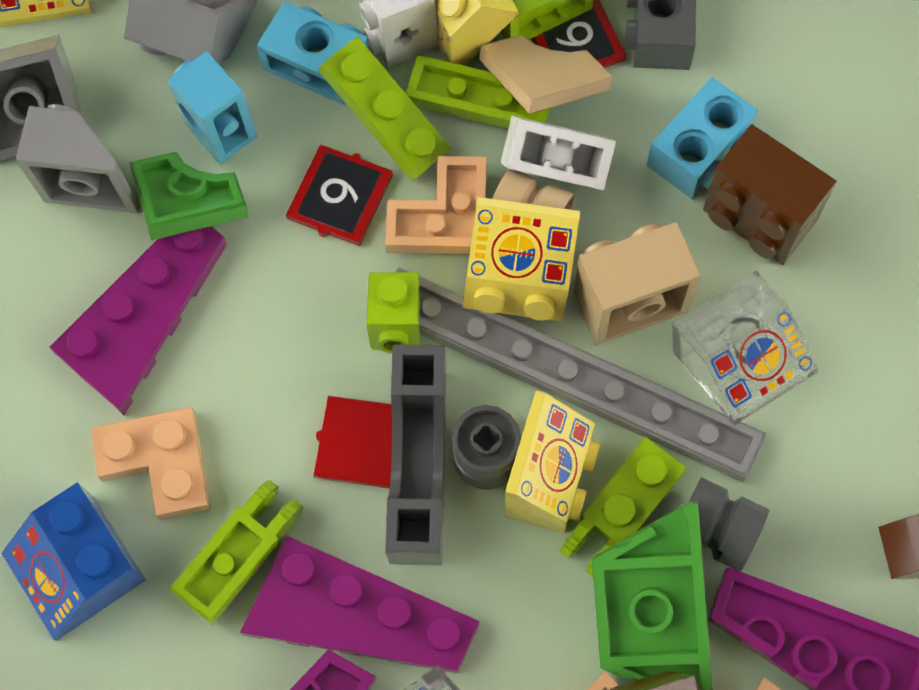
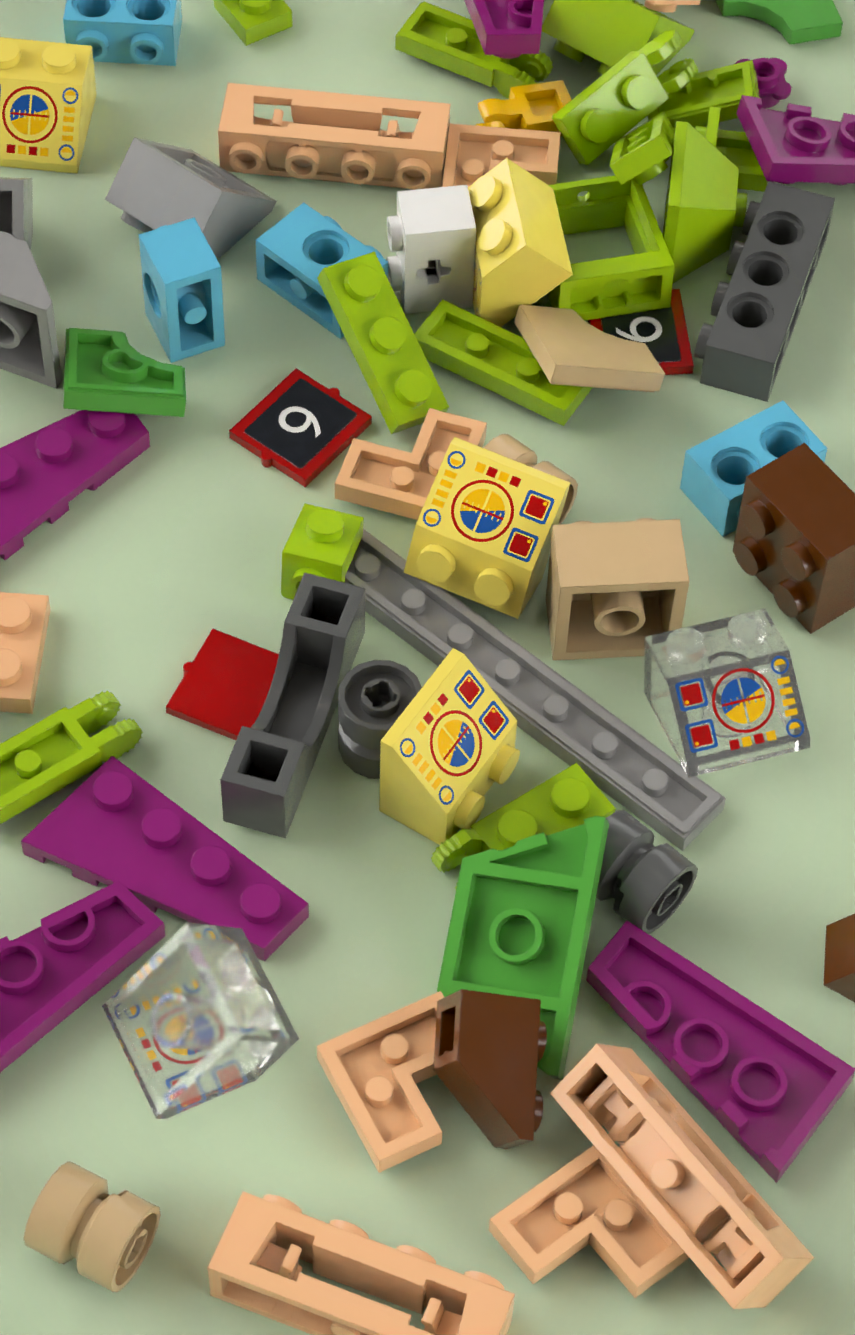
camera: 10 degrees right, 15 degrees down
(557, 152) = (571, 432): white brick -> none

